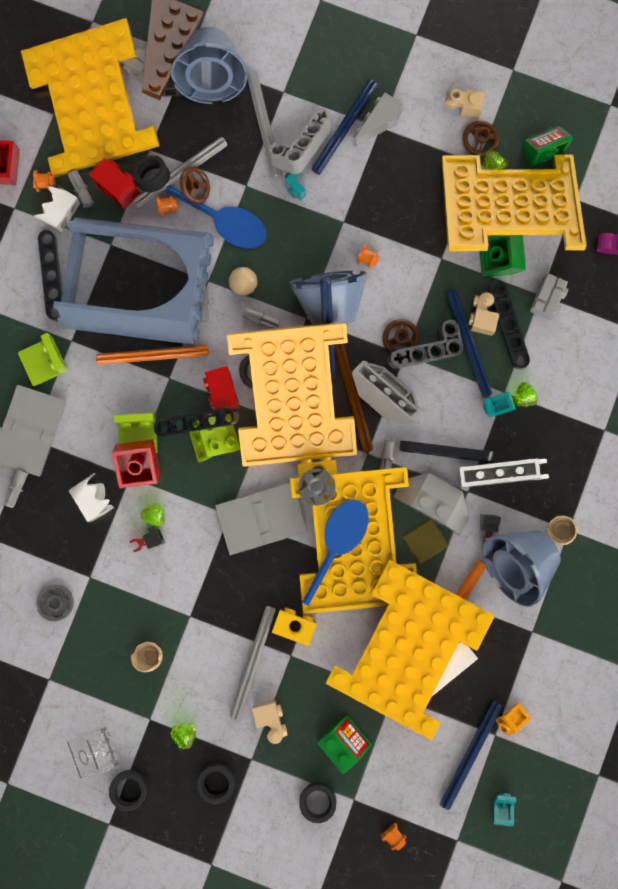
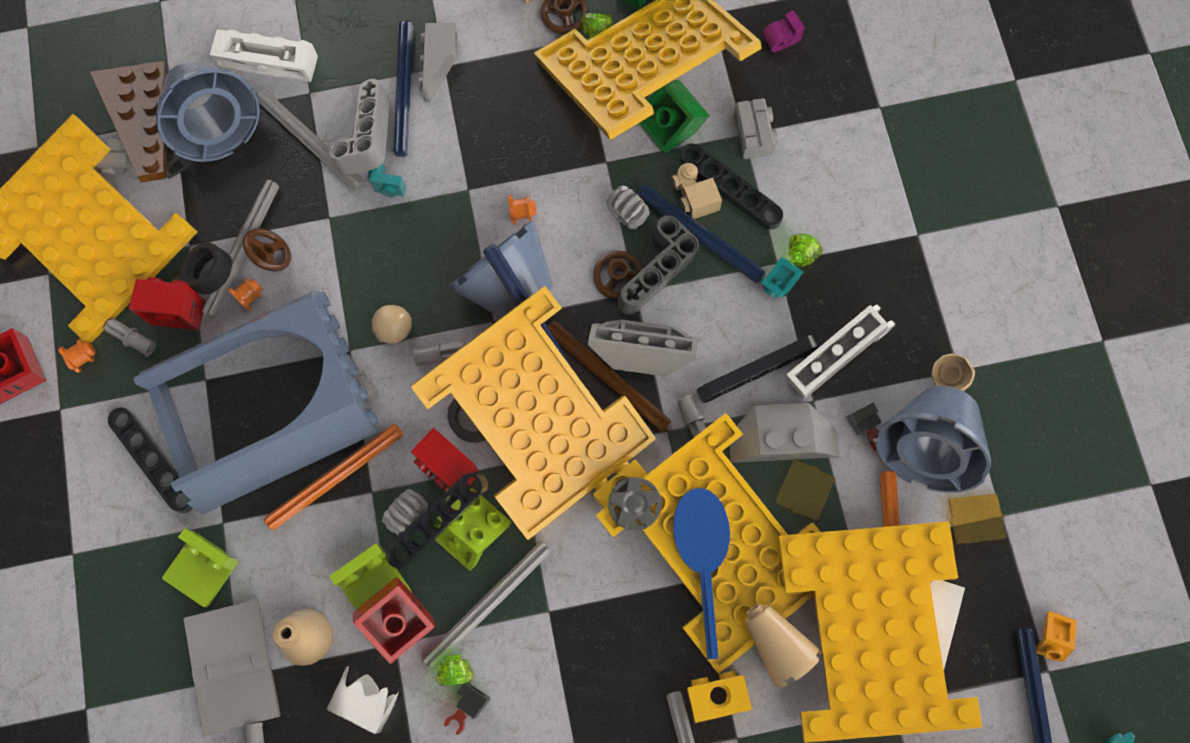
camera: 30 degrees left, 10 degrees down
(60, 210) = (115, 379): white piece -> none
(80, 439) = (303, 636): none -> tan cone
(180, 404) = (404, 512): none -> light grey gear
(195, 488) = (486, 605): none -> light grey axle
(232, 223) = (339, 268): blue piece -> none
(260, 519) = (590, 590): light grey piece -> none
(291, 63) = (264, 55): none -> white brick
(348, 621) = (780, 645): none -> tan cone
(433, 298) = (627, 207): none -> light grey gear
(515, 624) = (976, 519): none -> clear yellow piece

